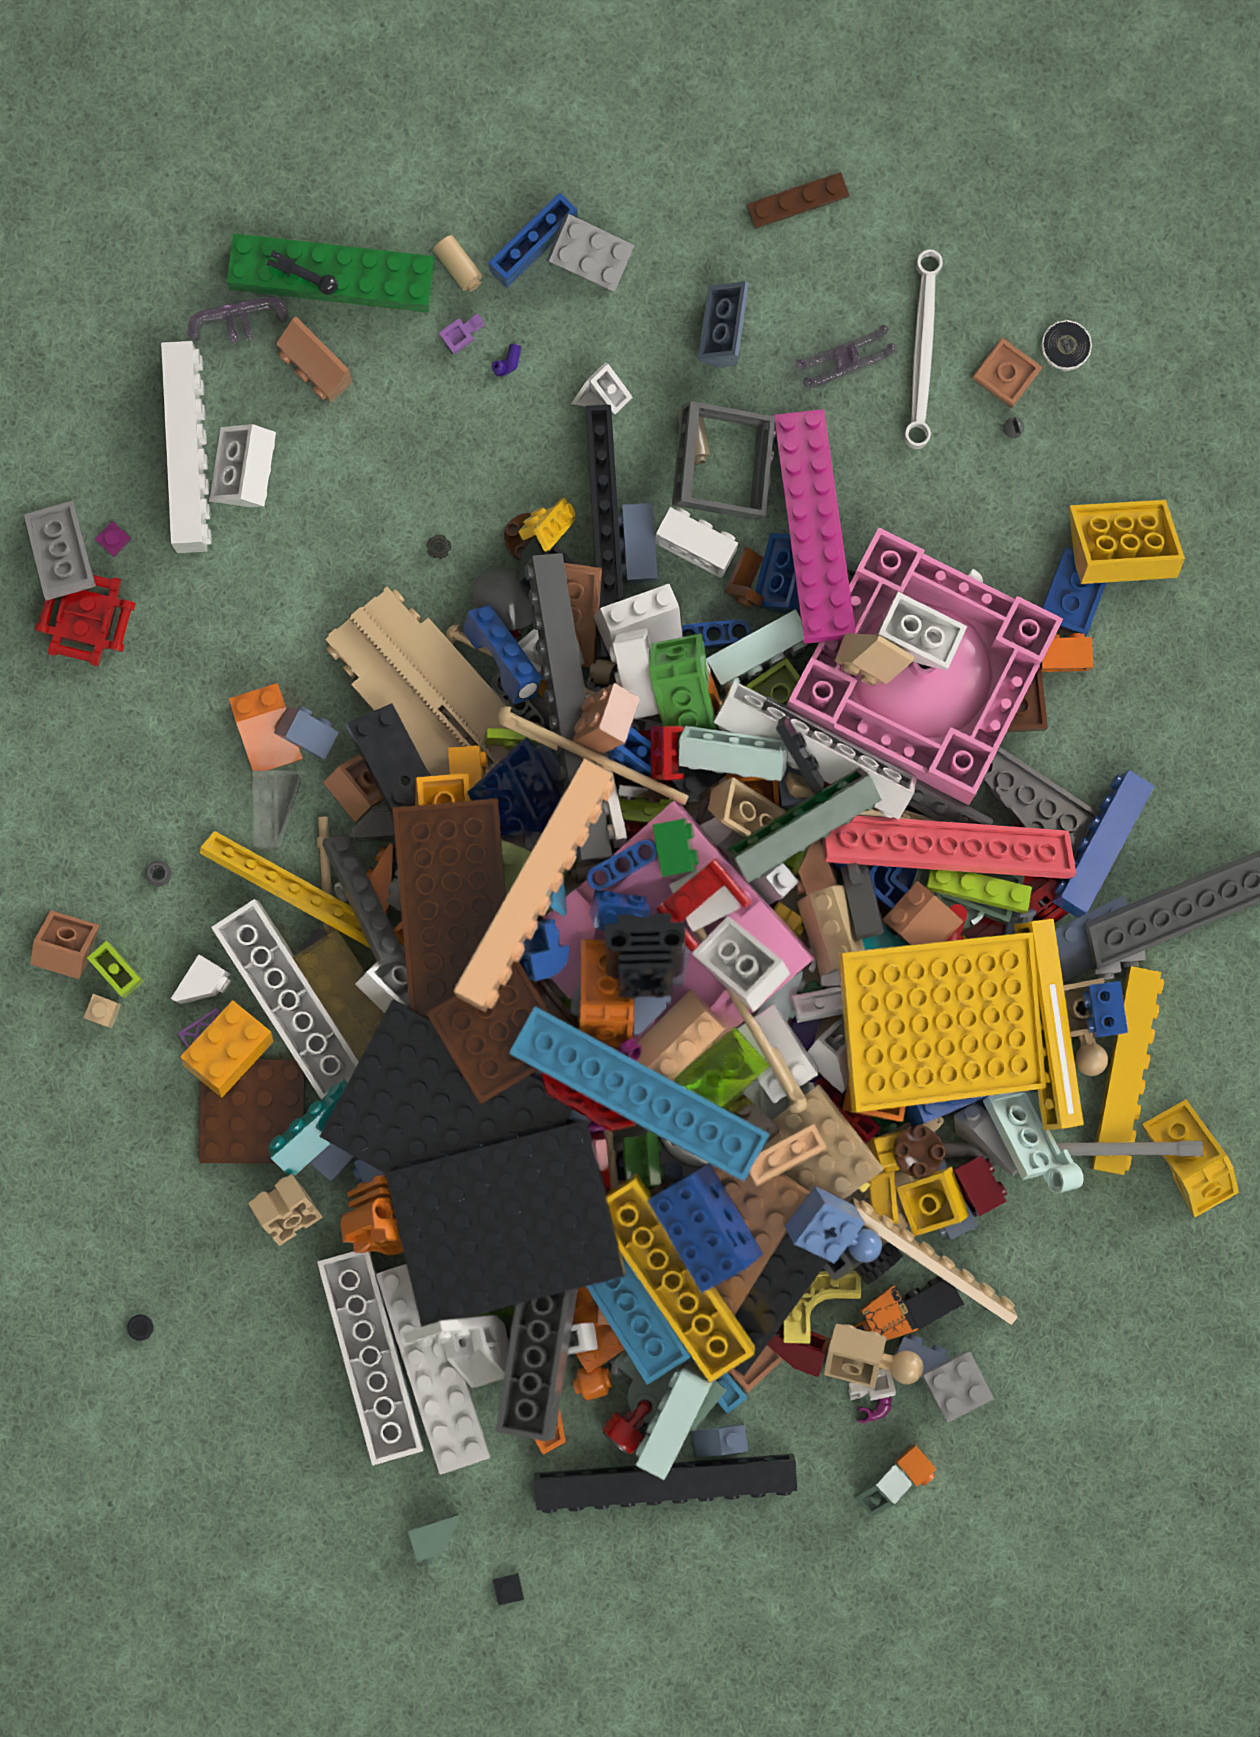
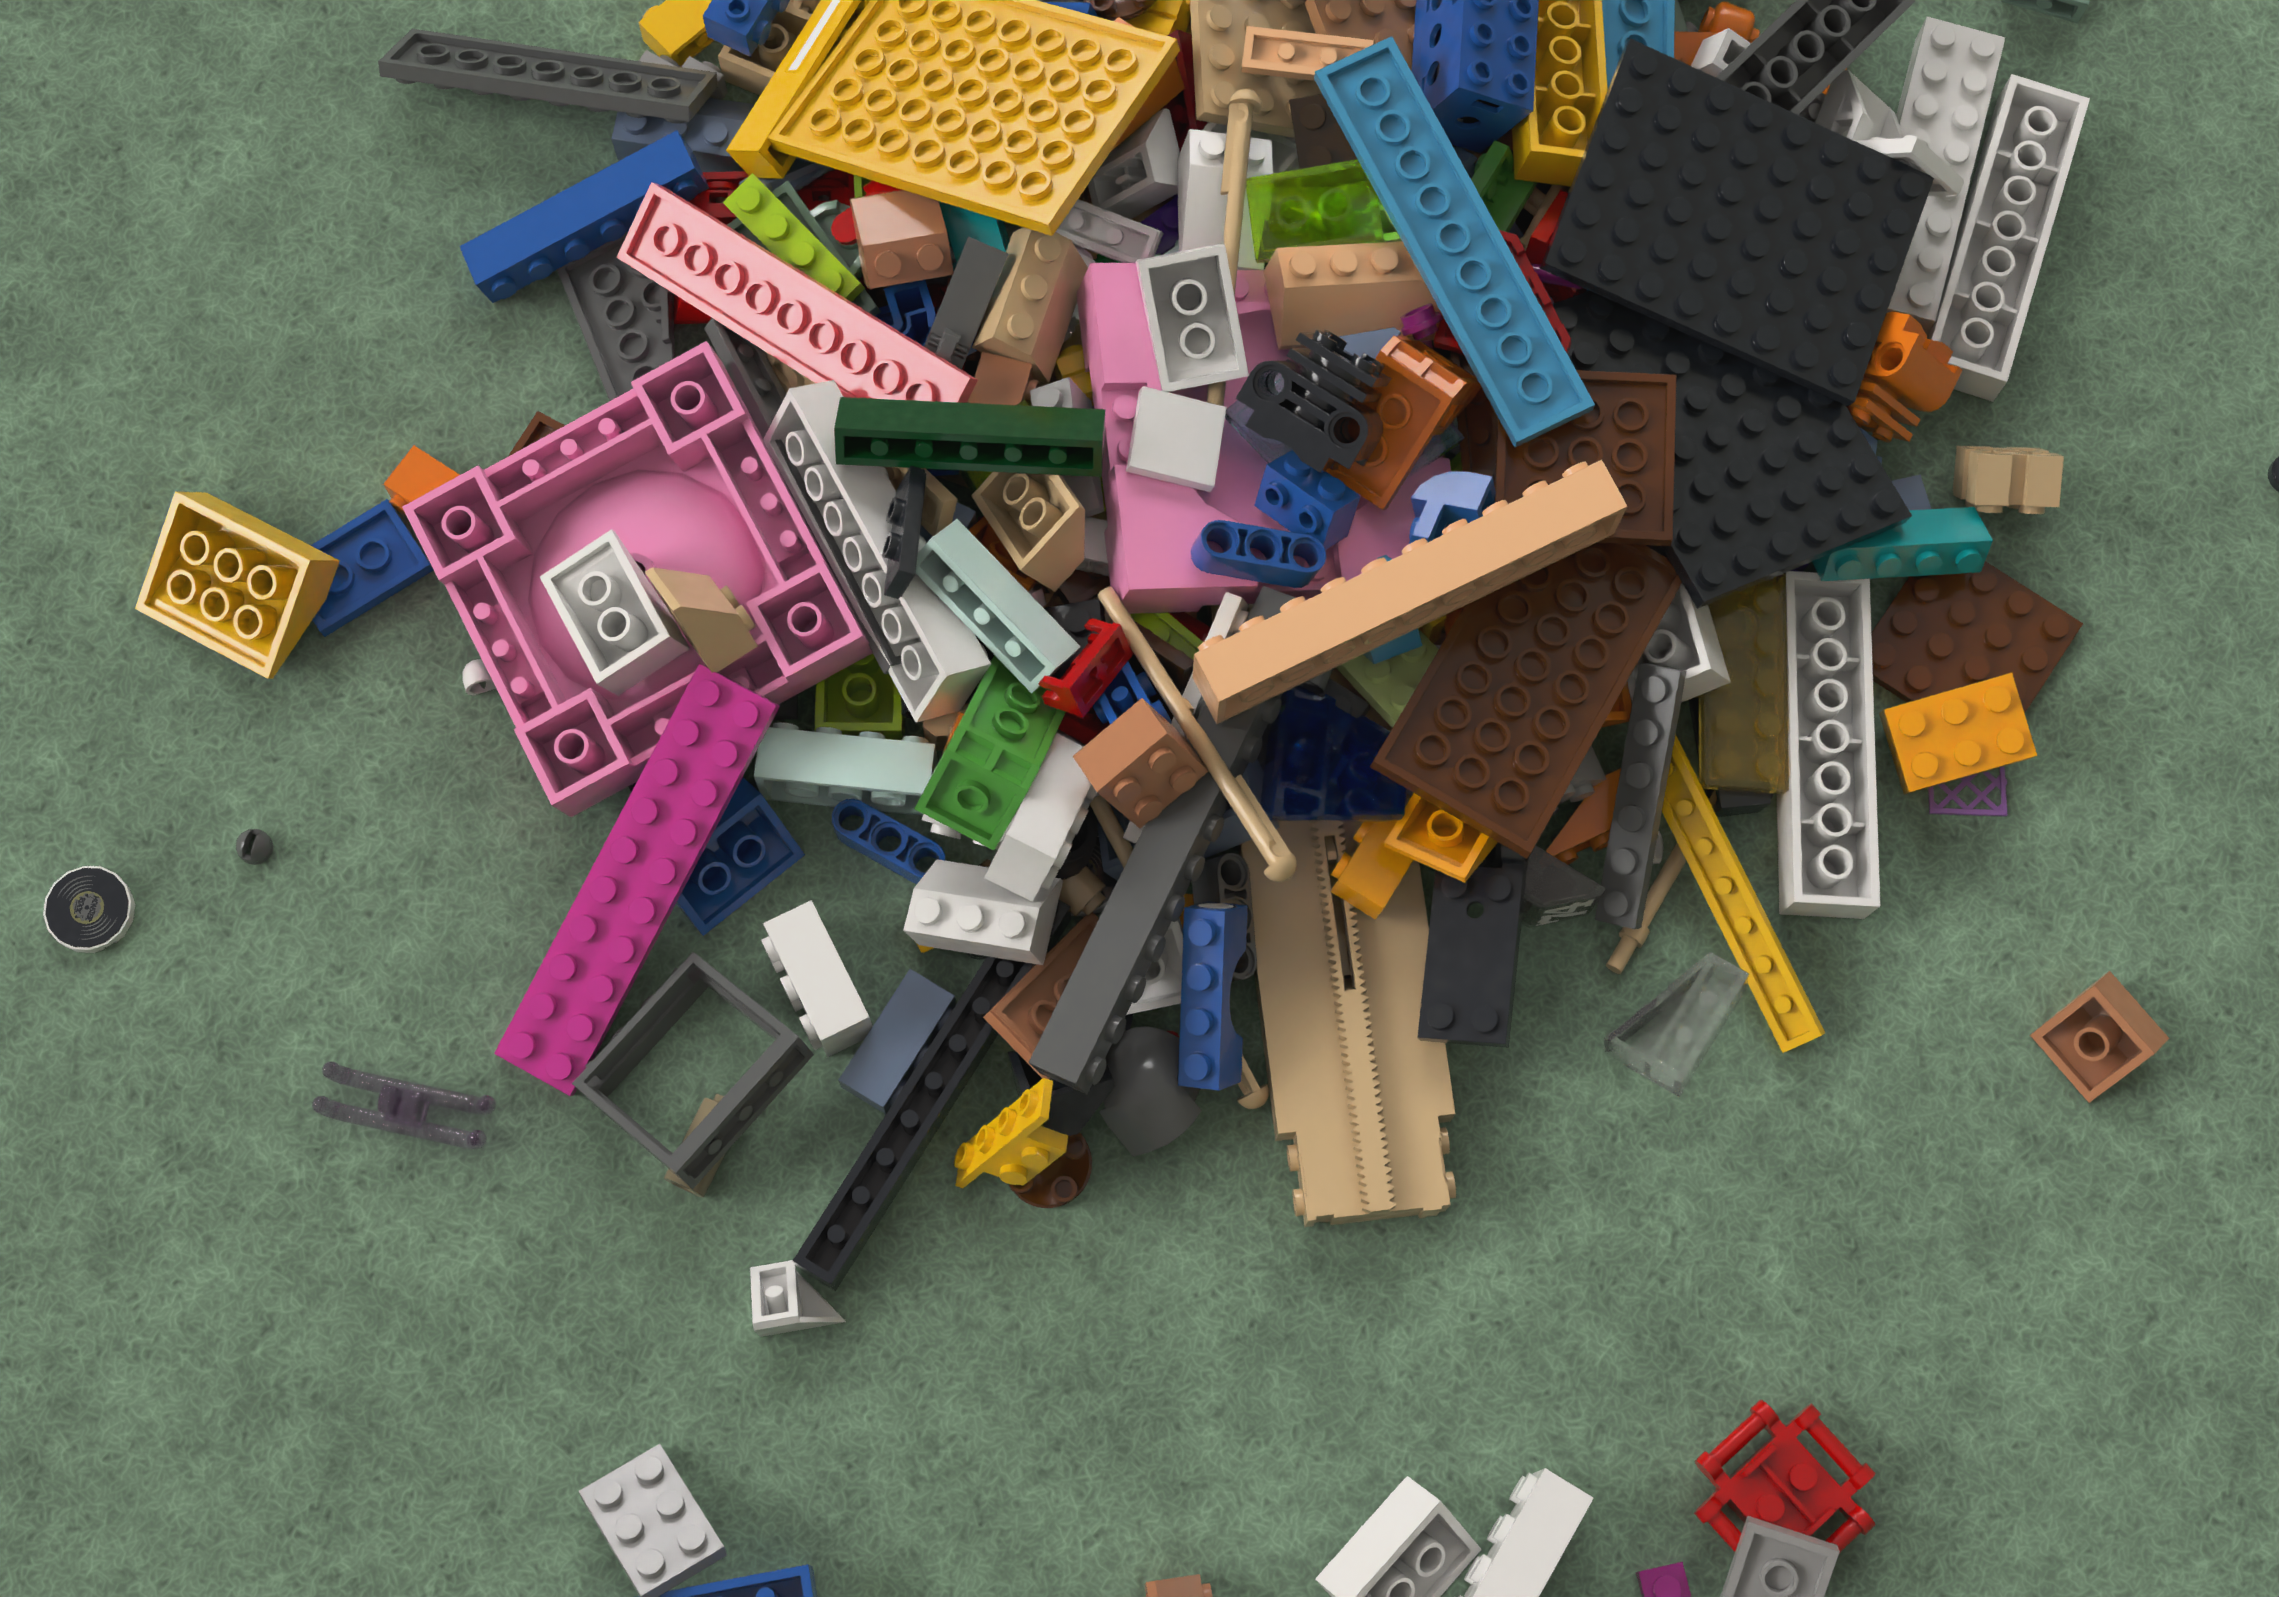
camera: 140 degrees left, 10 degrees down
(102, 1011) = (2101, 906): tan brick -> none
(115, 969) = (2049, 948): lime brick -> none
(150, 873) = (1910, 1039): dark grey plate -> none
(201, 982) = (1936, 845): white slope -> none
(257, 718) = (1616, 1148): orange slope -> none
(306, 732) = (1564, 1093): sand blue brick -> none
(354, 788) = (1547, 971): nougat slope -> none
(438, 553) = (1190, 1228): clear smoke plate -> none
(459, 335) = (937, 1541): medium lavender plate -> none
(504, 737) = (1297, 884): lime plate -> none
(509, 364) = (893, 1444): dark purple arm -> none
(675, 847) = (1172, 522): green brick -> none
(697, 892) = (1187, 444): red plate -> none
(723, 324) = (537, 1269): sand blue slope -> none
(742, 579) = (794, 892): reddish brown bracket -> none
(798, 200) = (289, 1393): reddish brown plate -> none
(923, 349) = (287, 1044): white piece -> none
(1007, 372) = (201, 927): nougat plate -> none

